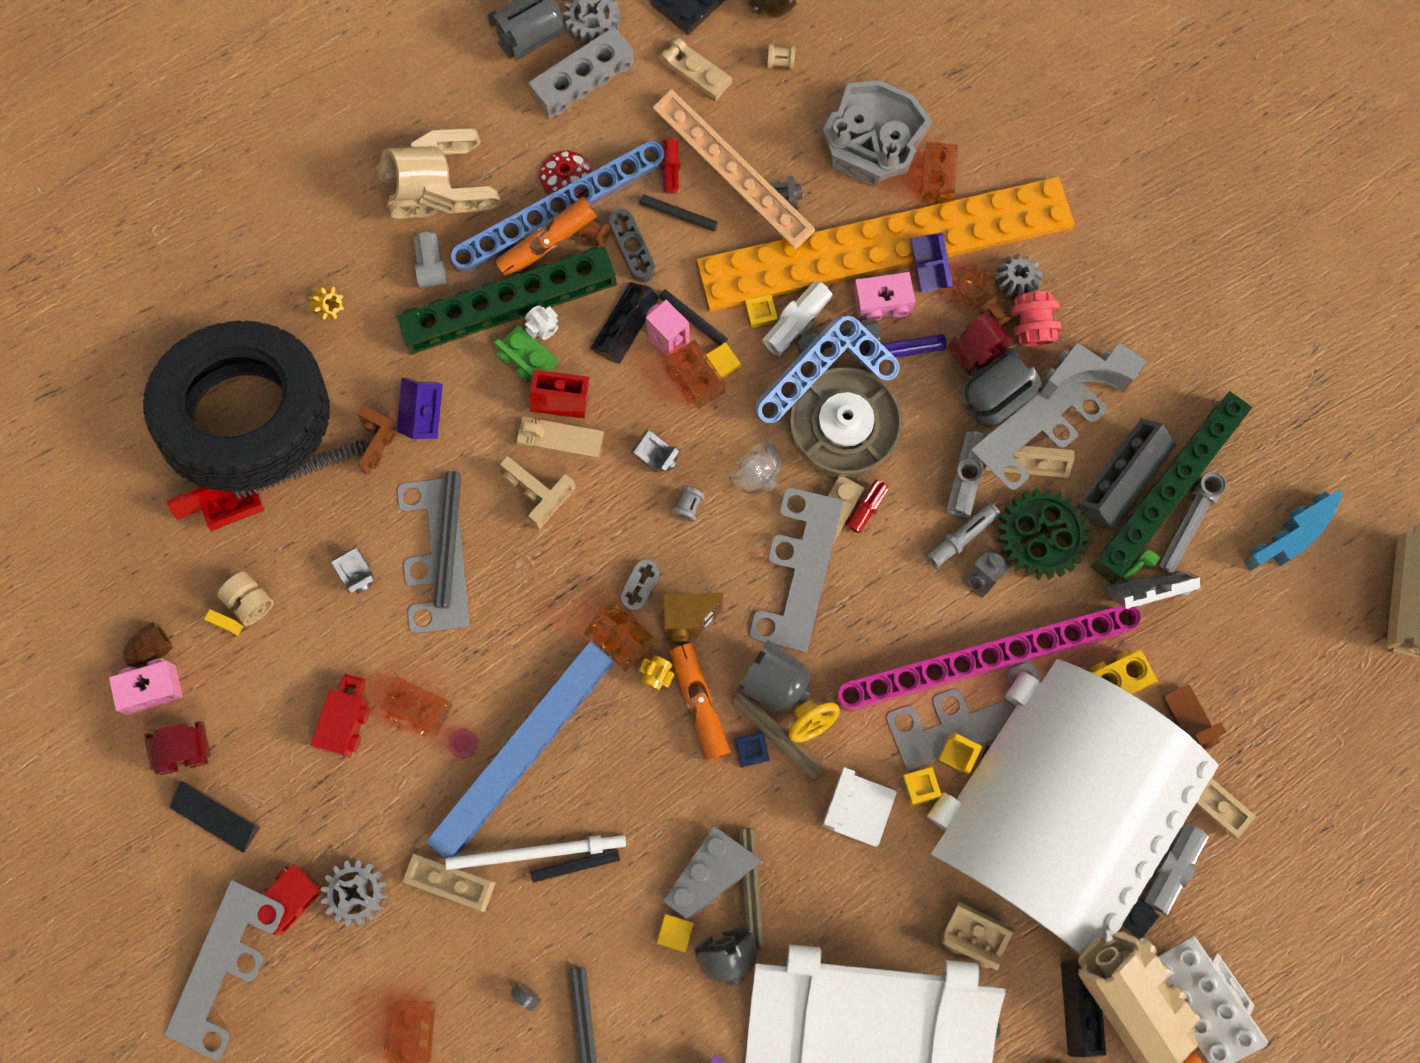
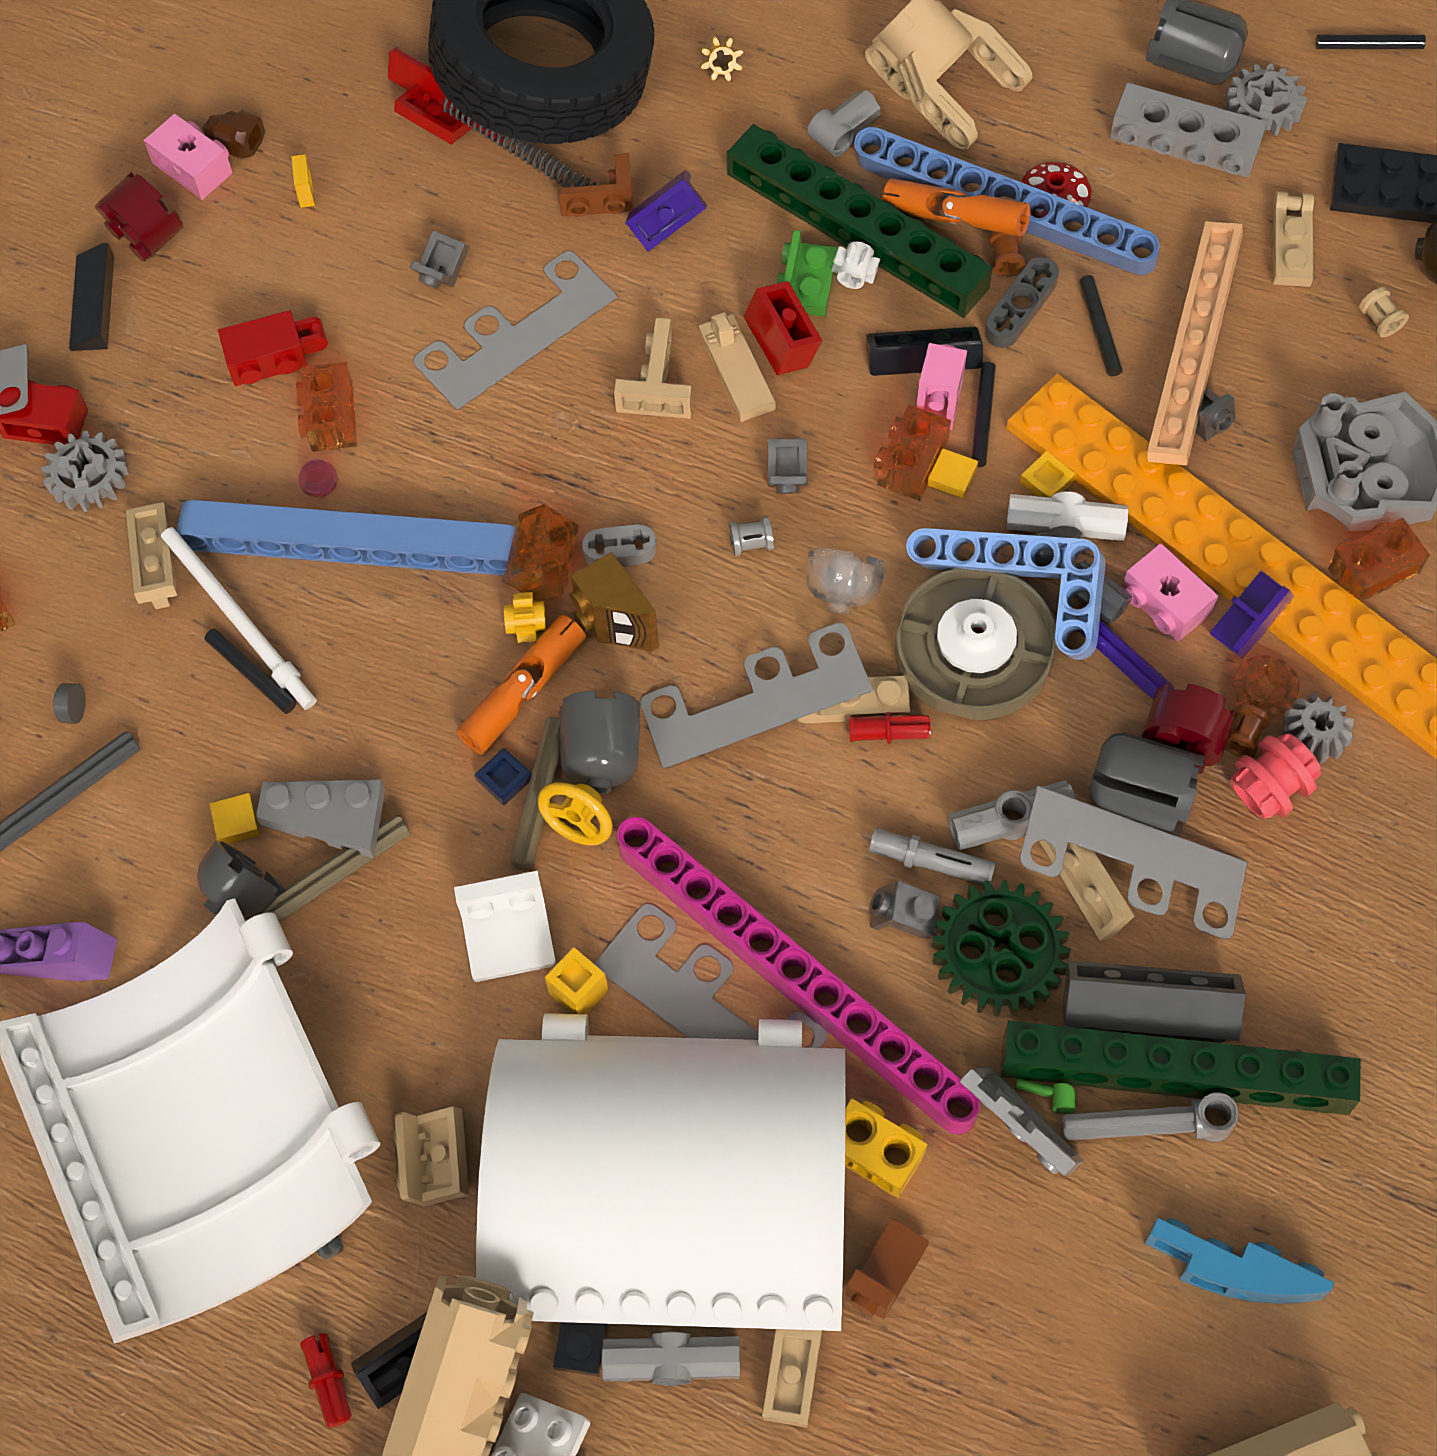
camera: 60 degrees right, 10 degrees down
(243, 596) = (341, 182): tan wheel -> none
(447, 540) = (538, 327): dark grey axle -> none
(670, 166) = (1150, 281): red axle -> none
(959, 753) = (649, 1006): yellow panel -> none
(1114, 369) = (1287, 909): light grey arch -> none

